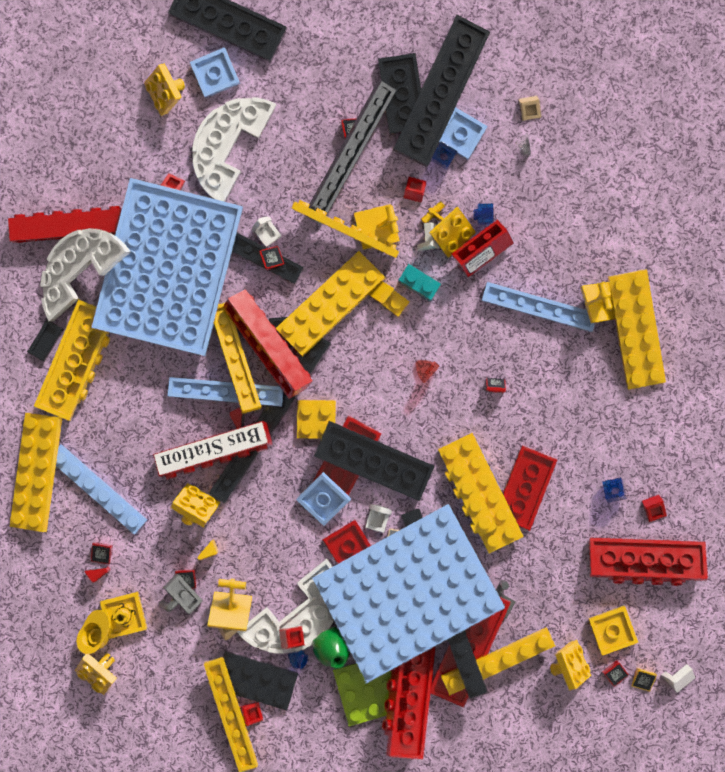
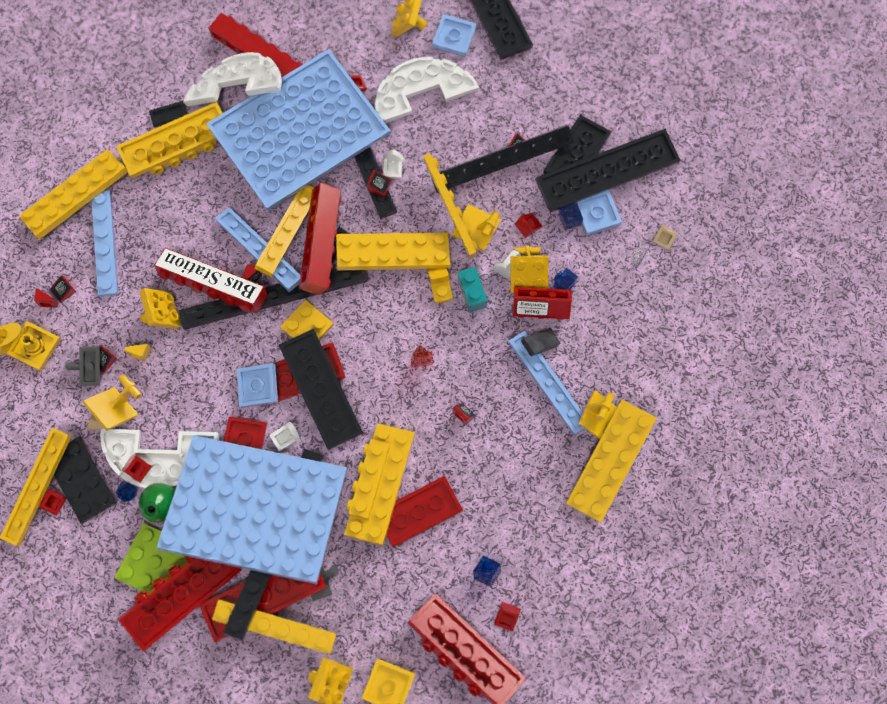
camera: 35 degrees right, 15 degrees down
(507, 280) = (540, 342): none -> black tile

